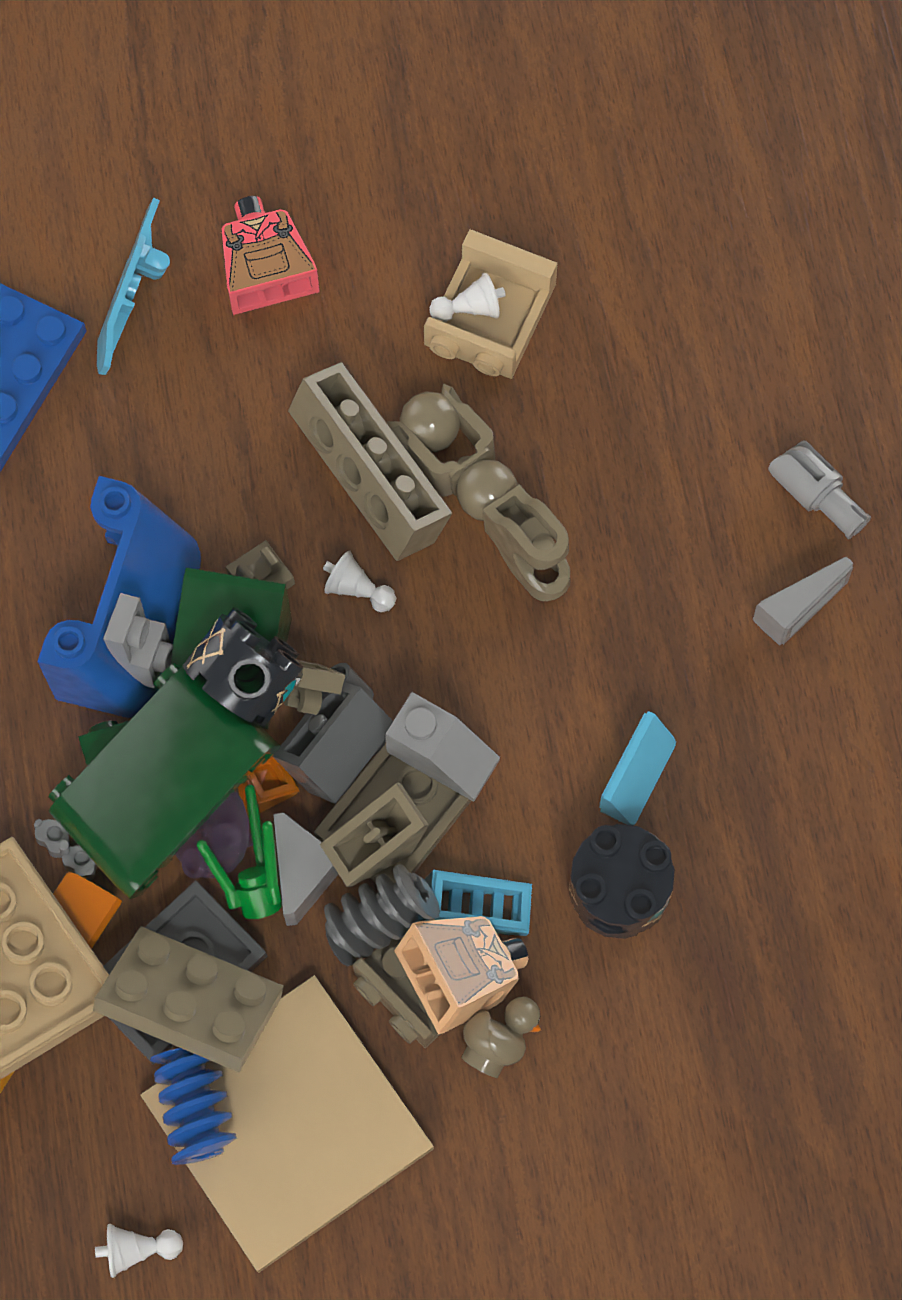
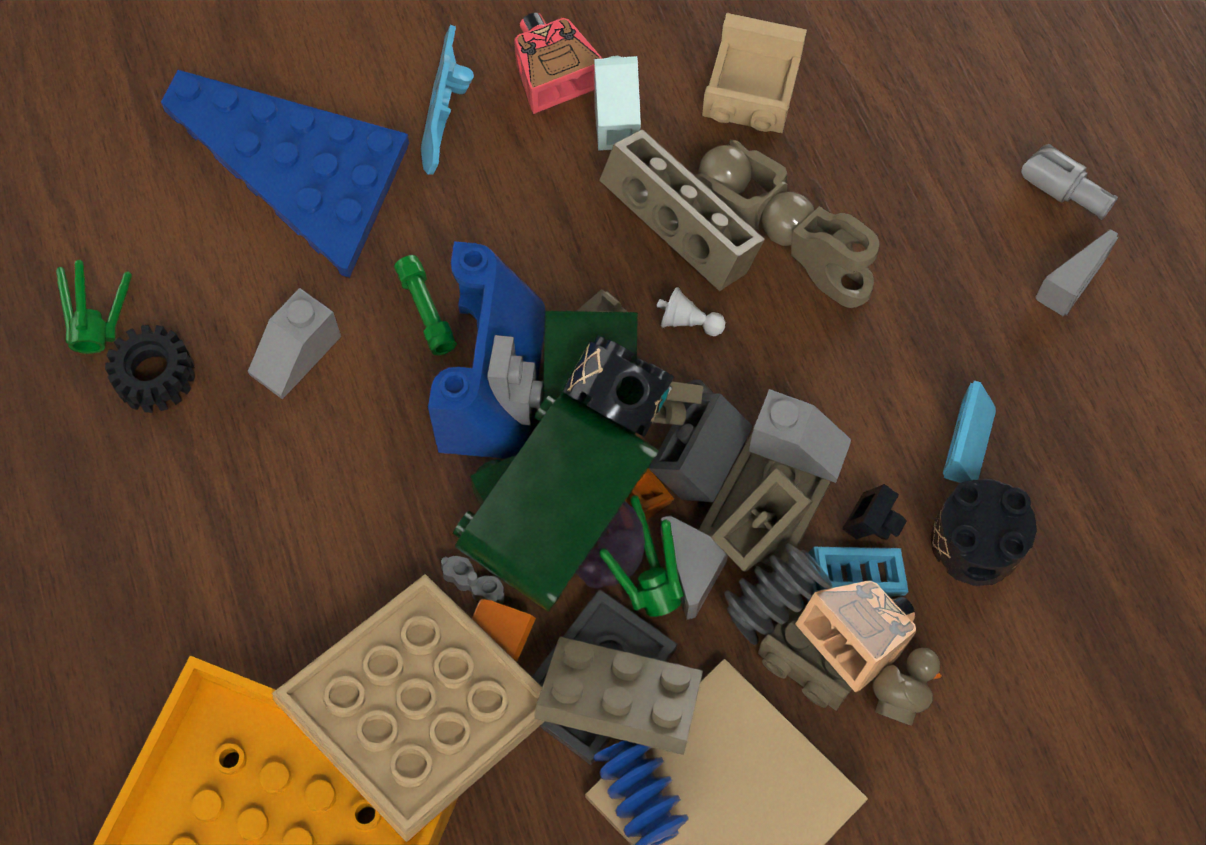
camera: 10 degrees left, 5 degrees down
(61, 494) = (437, 332): none -> green bar
(321, 322) = (616, 99): none -> light aqua slope
(477, 299) = (746, 68): white piece -> none
(509, 844) = (875, 515): none -> black tile

